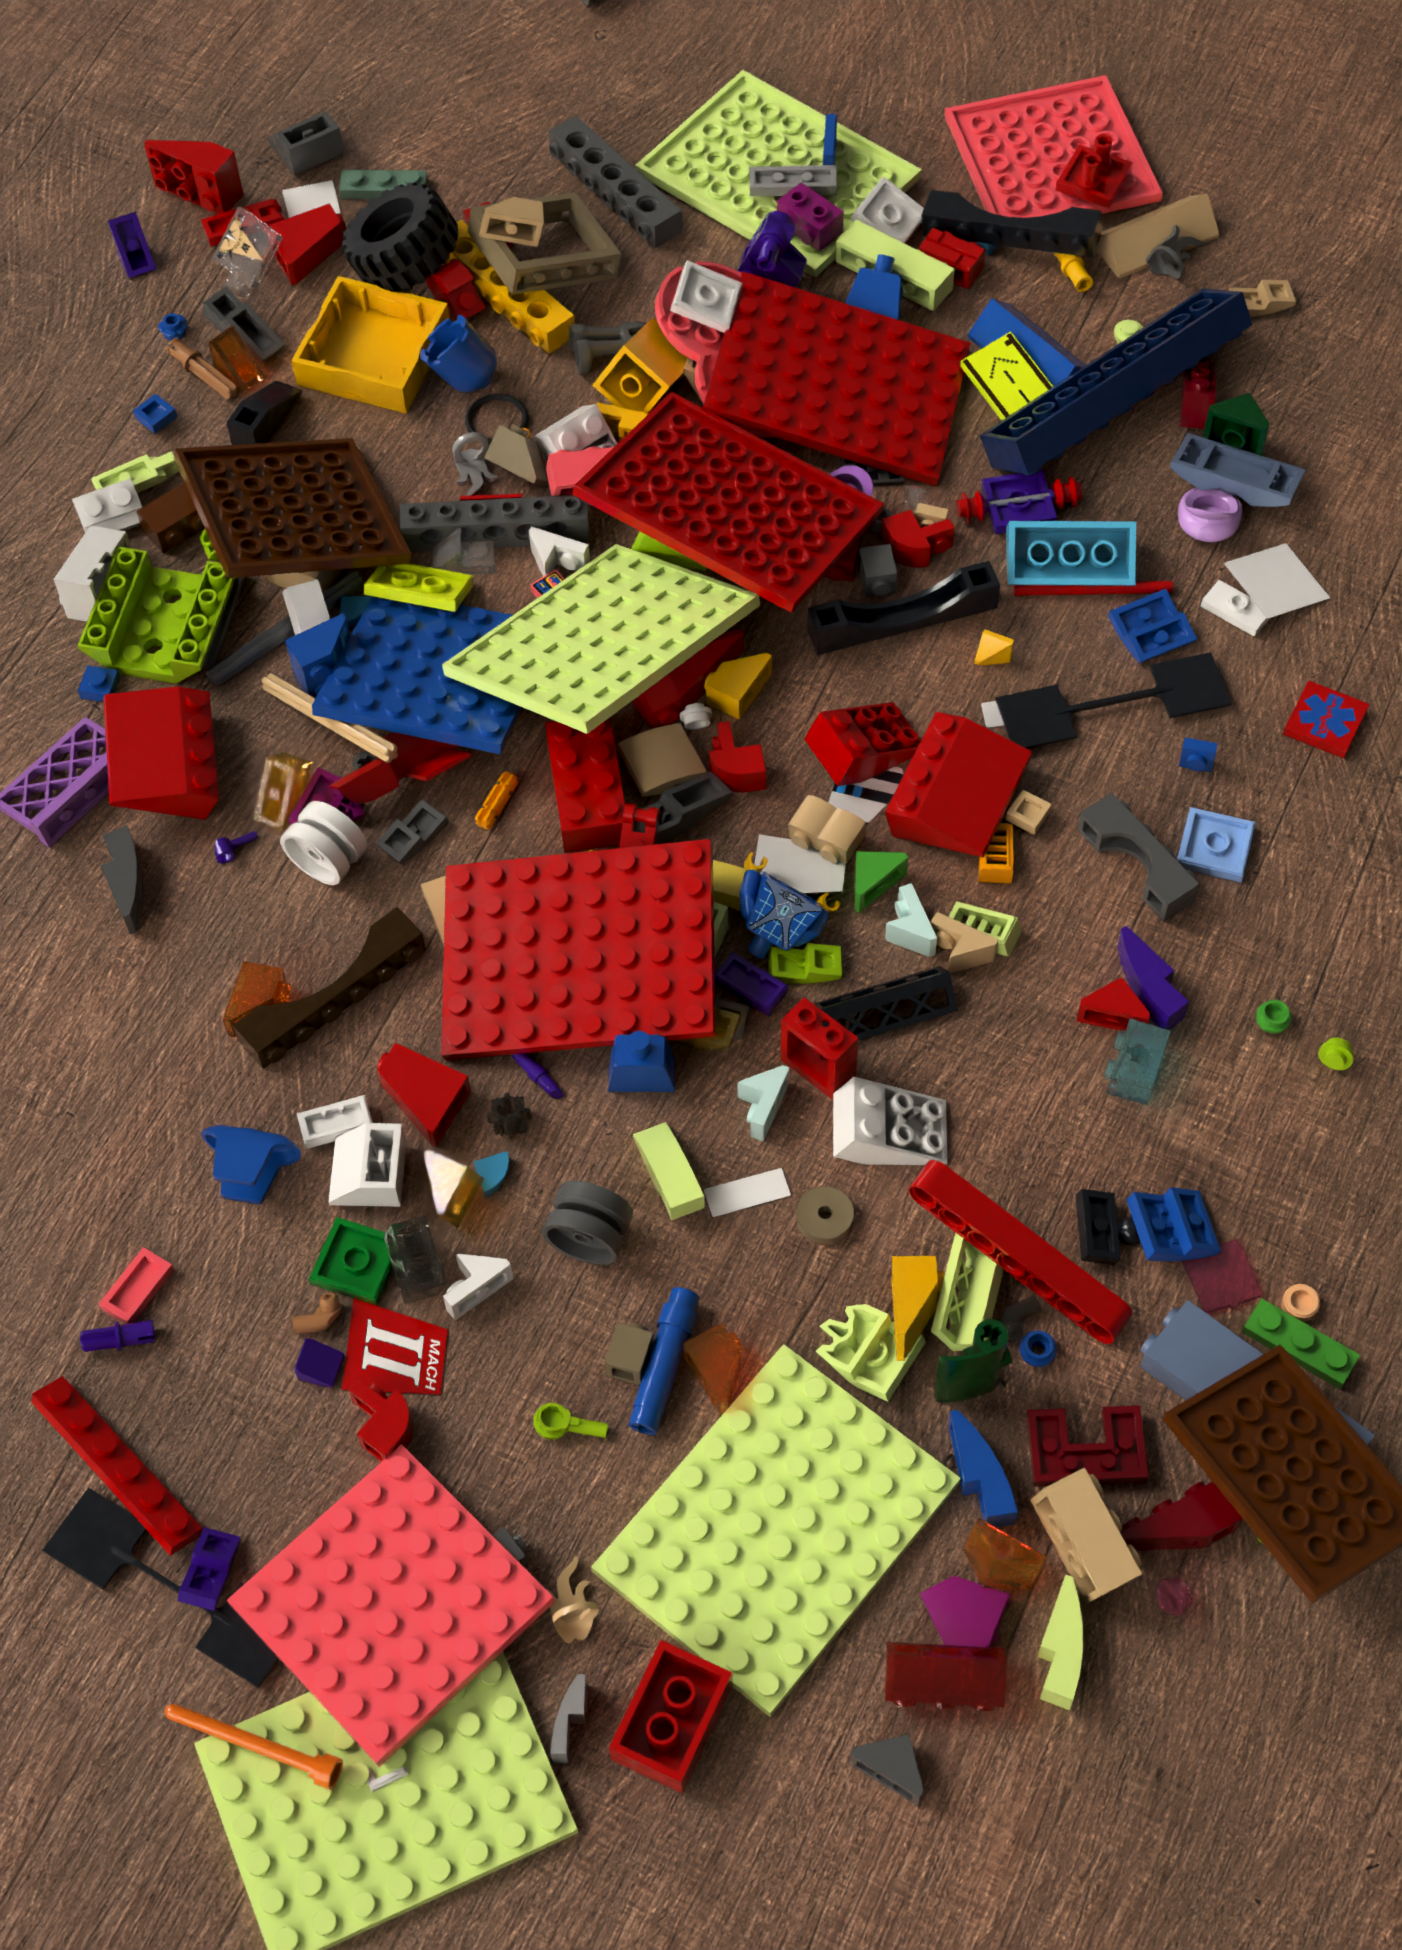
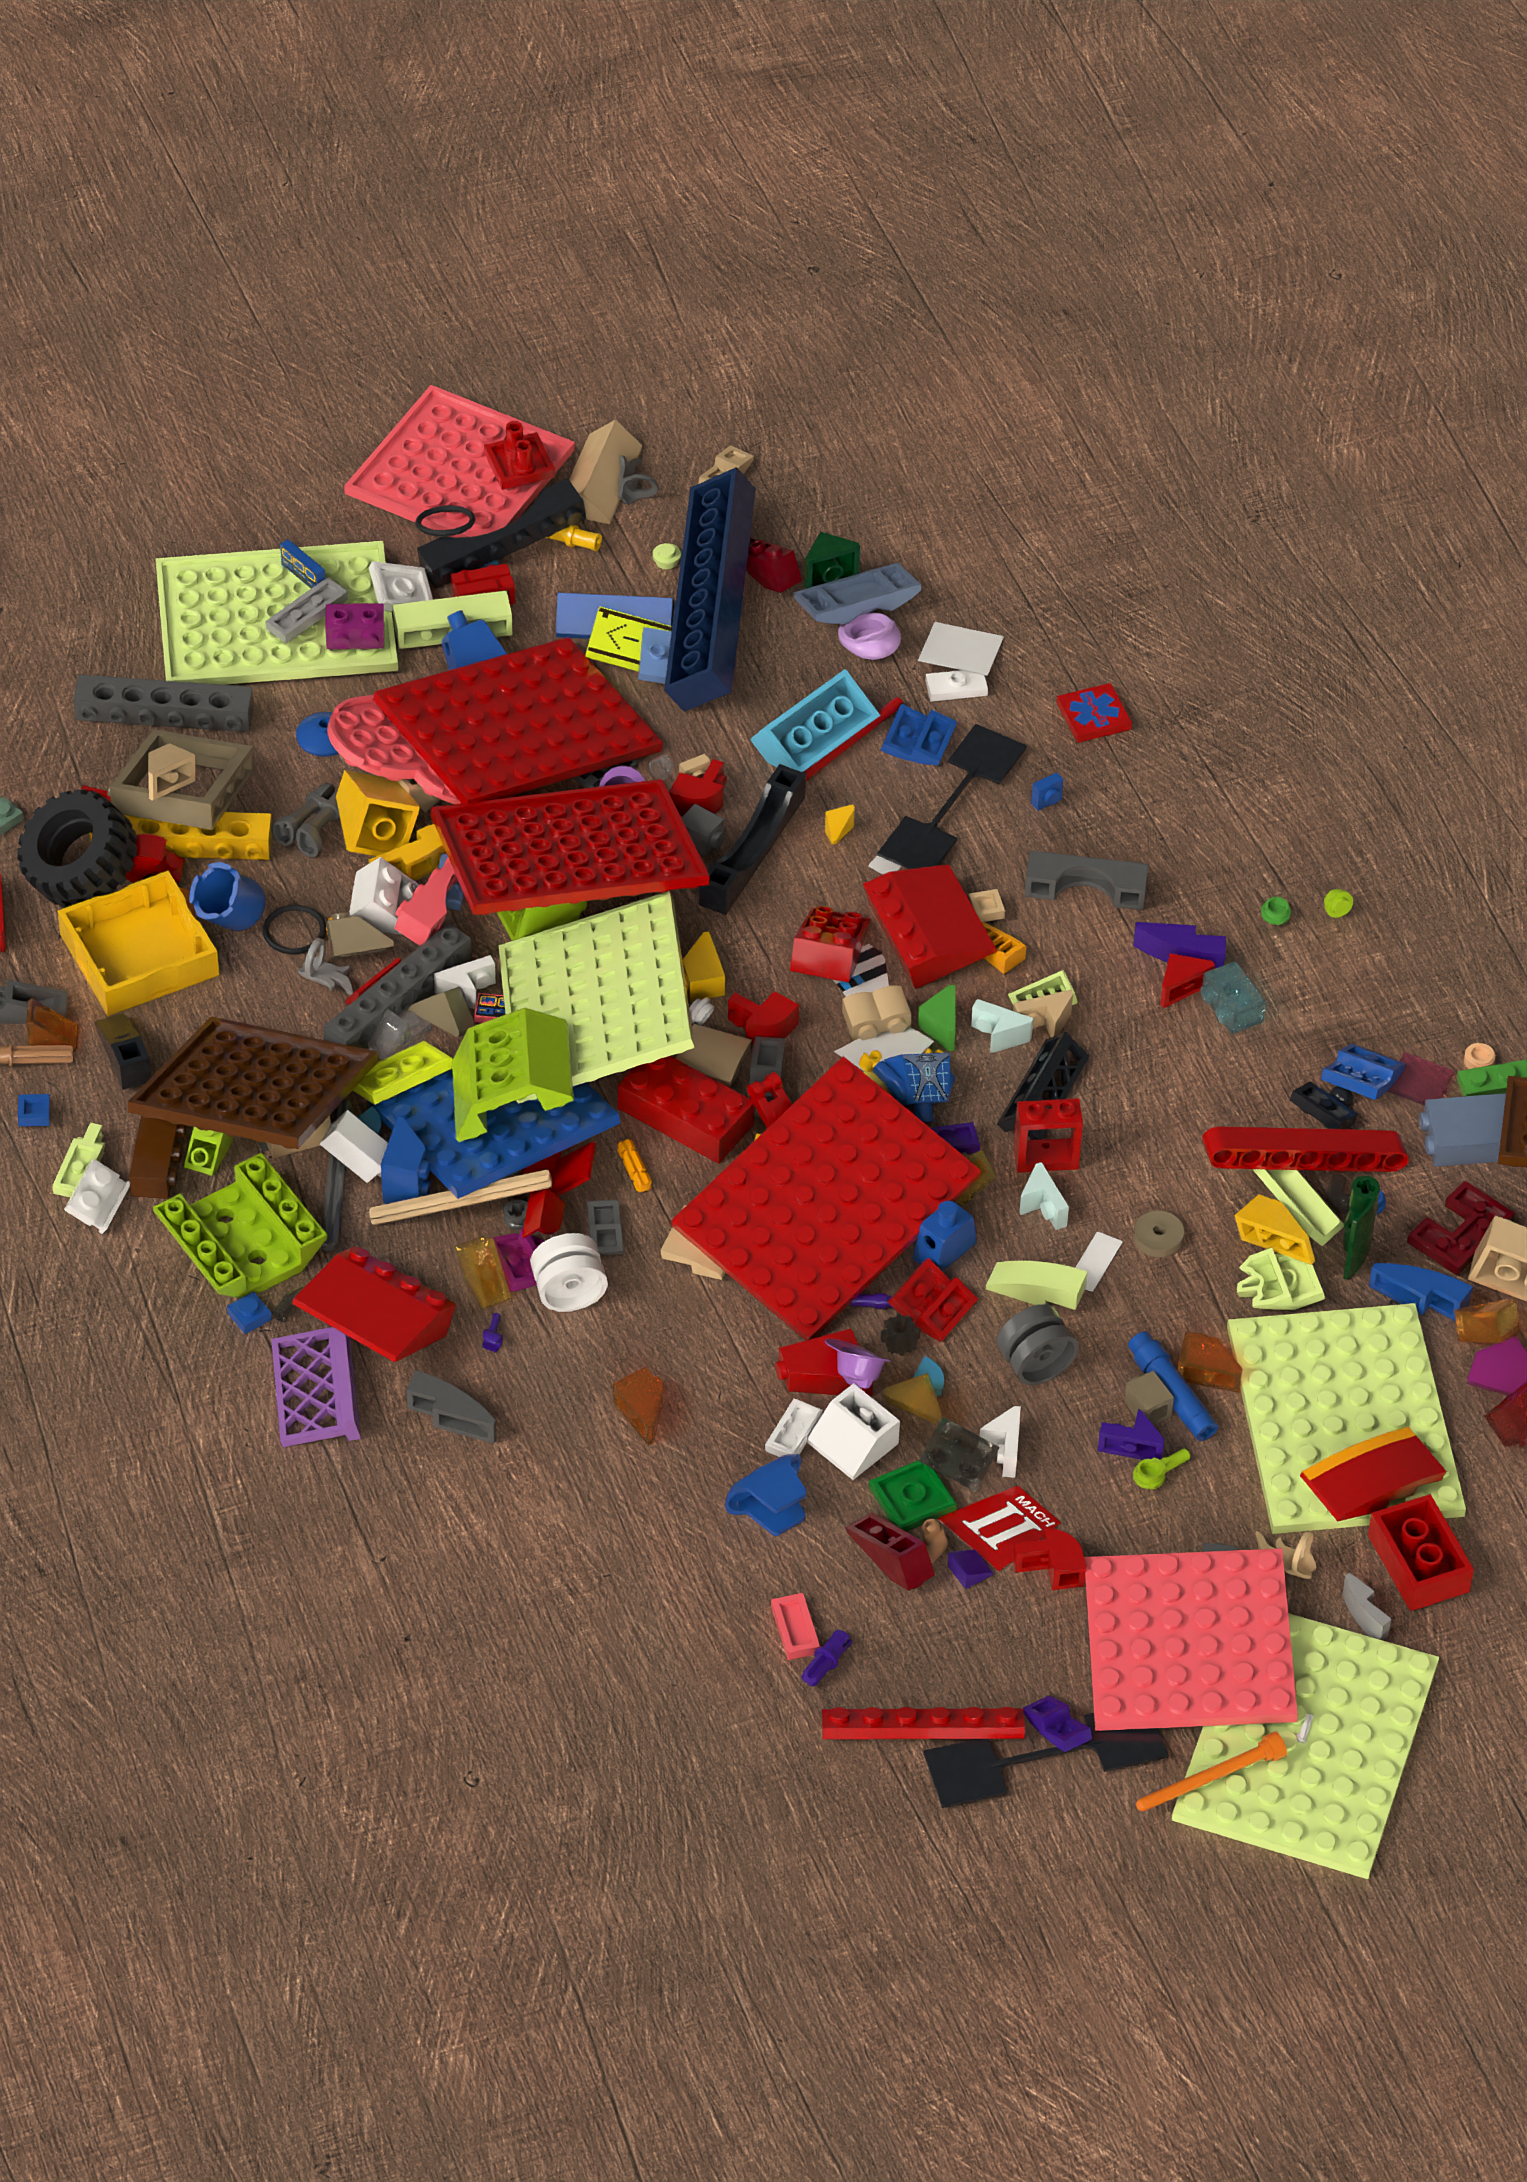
camera: 50 degrees left, 10 degrees down
(85, 570) = (150, 1243): white wedge -> none
(274, 1293) = (893, 1550): none -> dark red slope
(279, 1027) = (681, 1406): dark brown arch -> none
(424, 1103) = (856, 1363): none -> medium lavender piece
(457, 641) = (529, 1059): none -> lime slope
(510, 567) = (446, 1011): none -> dark tan slope
(573, 1109) = (933, 1300): none -> red slope
(577, 1381) = (1137, 1442): none -> dark purple slope
(706, 296) = (377, 724): white plate -> none
(713, 1604) = (1373, 1474): none -> red slope
(771, 253) = (364, 666): dark purple piece -> none
(811, 965) = (965, 1103): lime slope -> none
(887, 1125) = (1133, 1152): white slope -> none
(979, 197) = (448, 508): none -> black tyre
(1010, 400) = (654, 655): none -> medium blue plate
(1018, 499) = (736, 717): dark purple plate -> none
(1216, 844) = (1120, 837): light blue tile -> none

